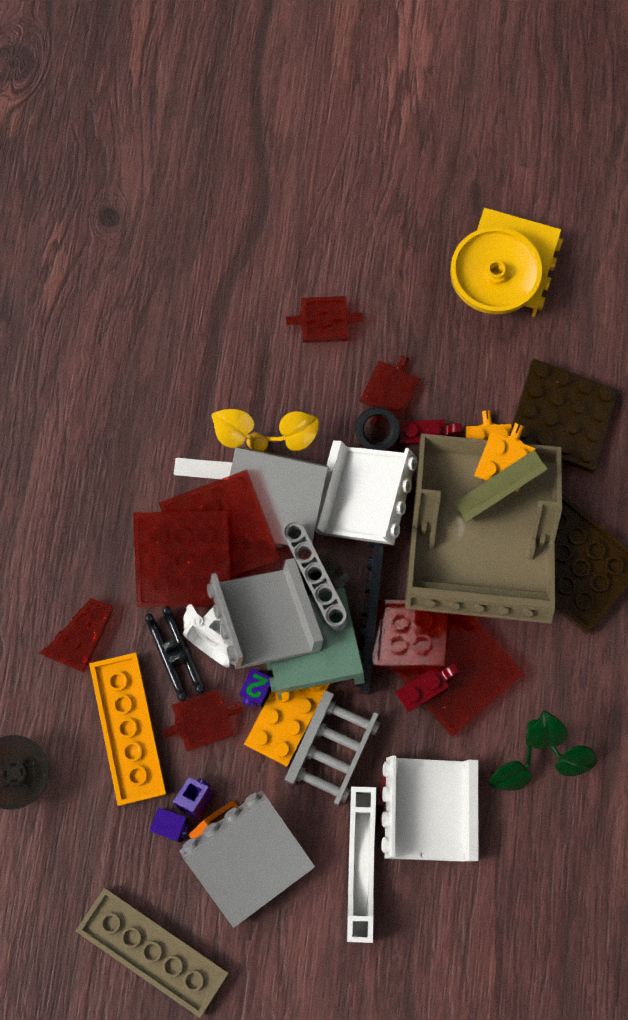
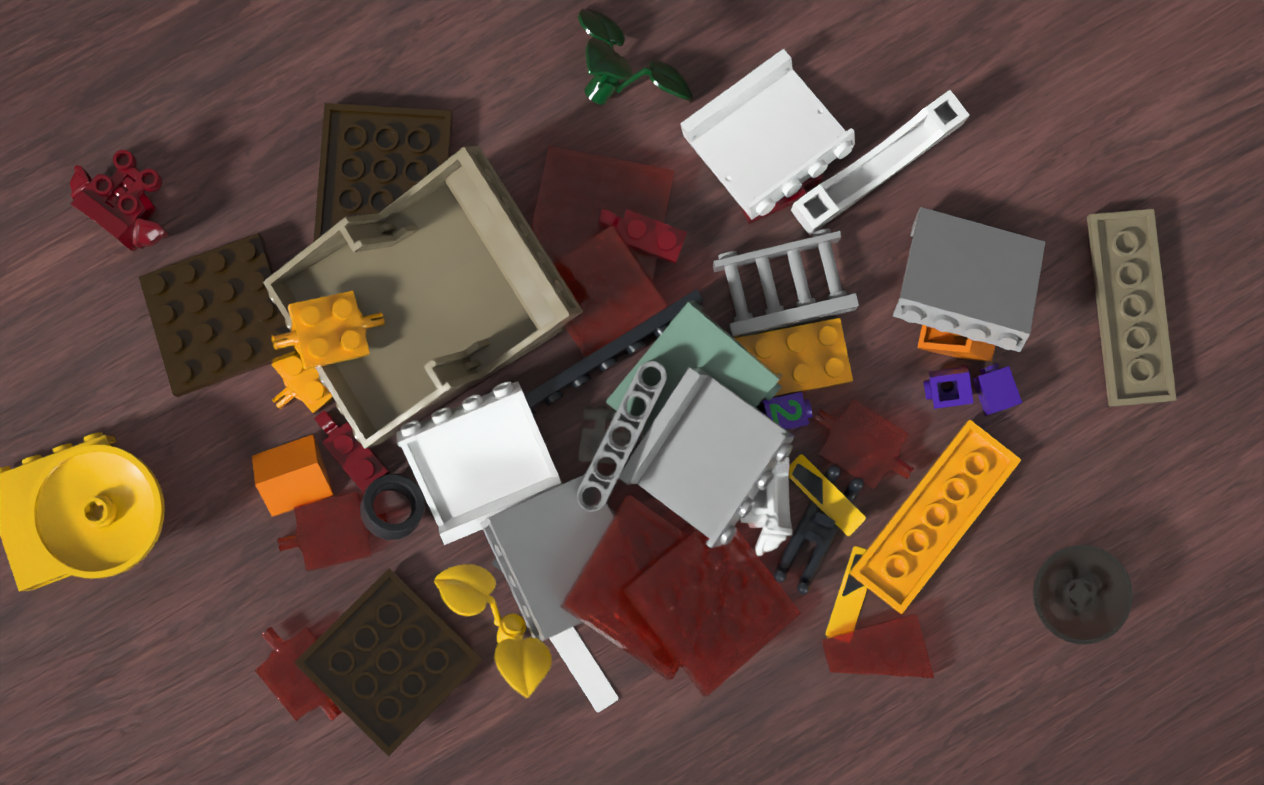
camera: 125 degrees left, 10 degrees up
(121, 642) = (848, 600): none -> yellow sticker
(191, 674) = (825, 495): none -> yellow sticker
(293, 366) = (388, 662): none -> dark brown plate
(439, 391) = (291, 475): none -> orange slope
(500, 485) = (363, 309): olive fence -> none

